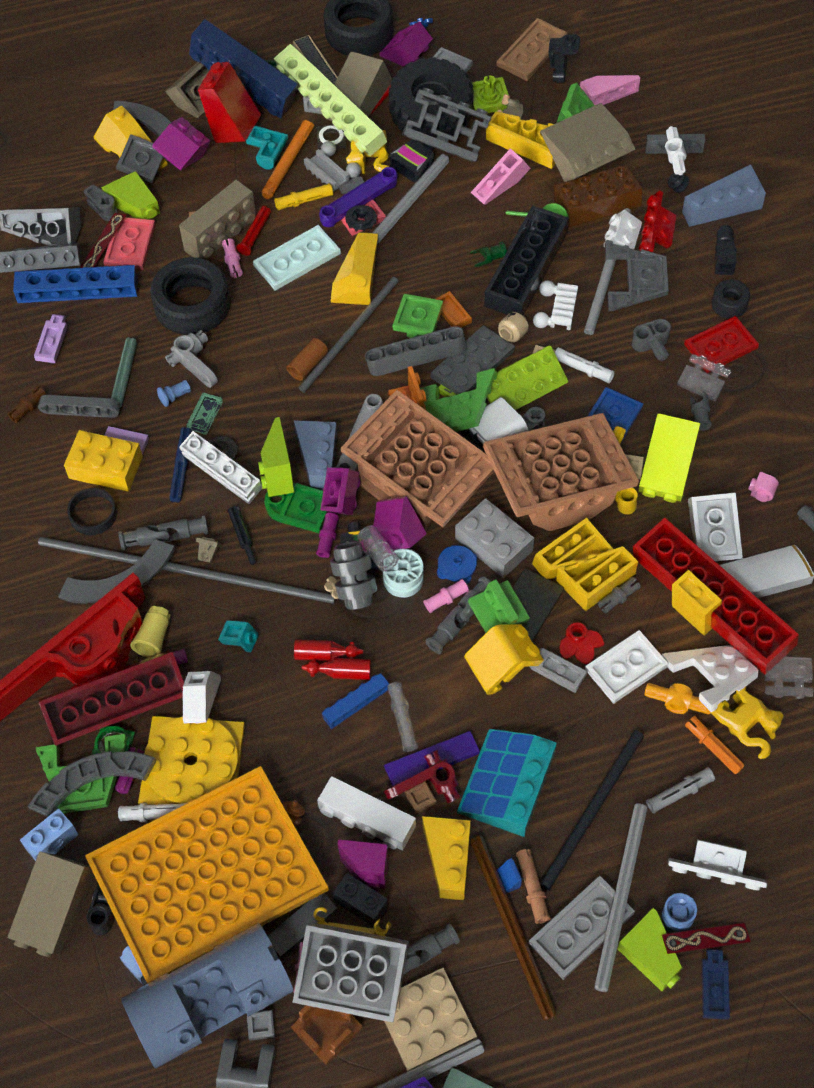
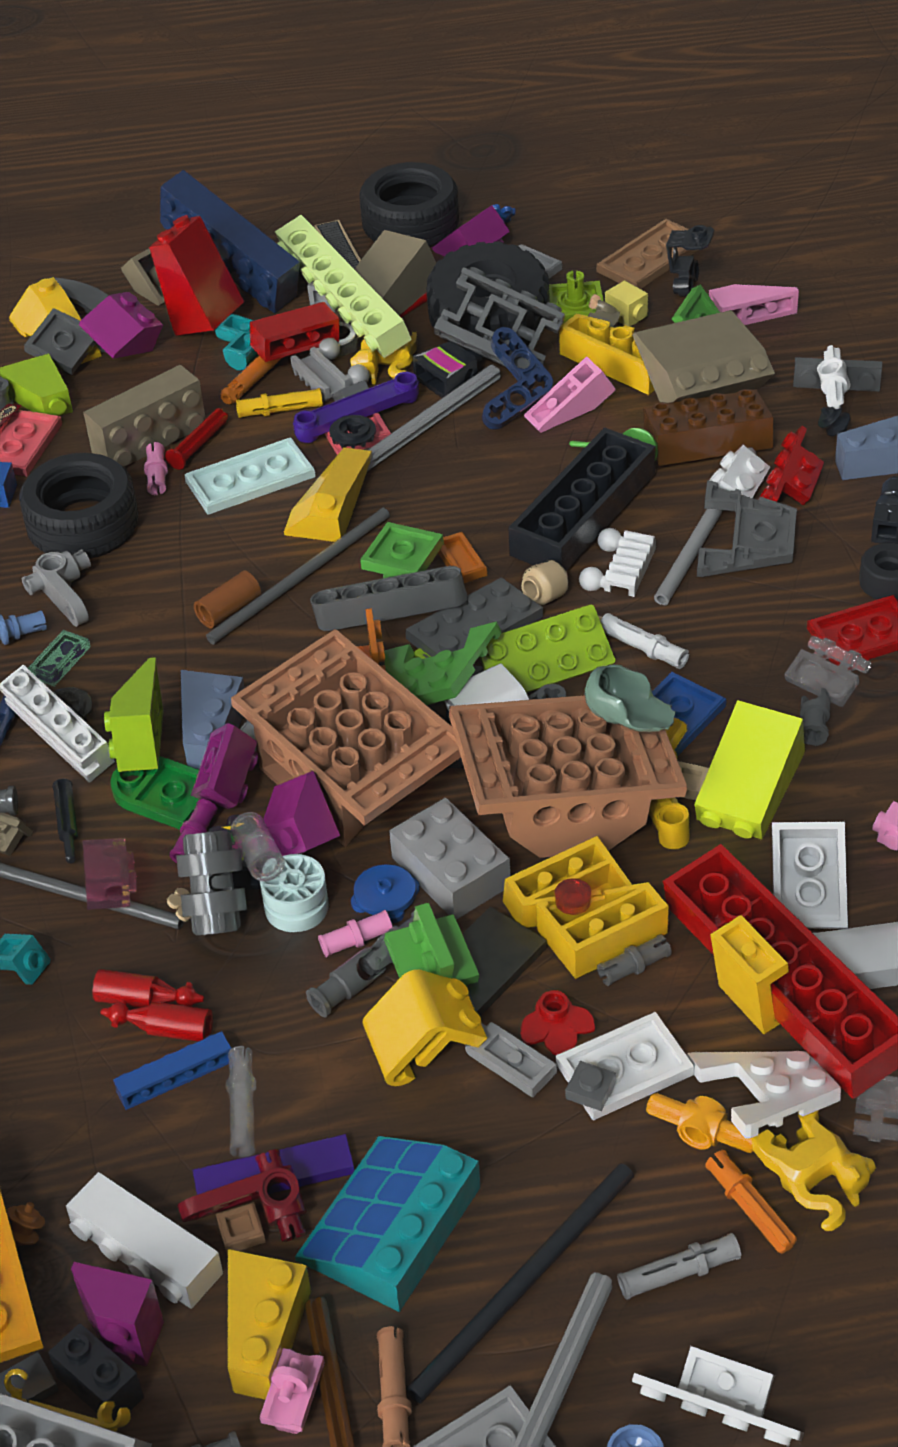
camera: 10 degrees right, 15 degrees down
(282, 572) = (108, 873): none -> clear pink brick
(303, 139) = (293, 331): none -> red brick
(470, 165) = (525, 377): none -> dark blue beam
(477, 895) = (292, 1391): none -> bright pink hips
(490, 253) = (530, 488): dark green piece -> none
(510, 876) = (356, 1369): blue slope -> none
(526, 94) = (629, 301): none -> light yellow brick
(580, 562) = (573, 896): none -> clear red tile
(593, 426) = (626, 699): none -> sand green hair
(611, 684) = (590, 1085): none -> dark grey plate
(652, 336) = (756, 610): dark grey beam -> none

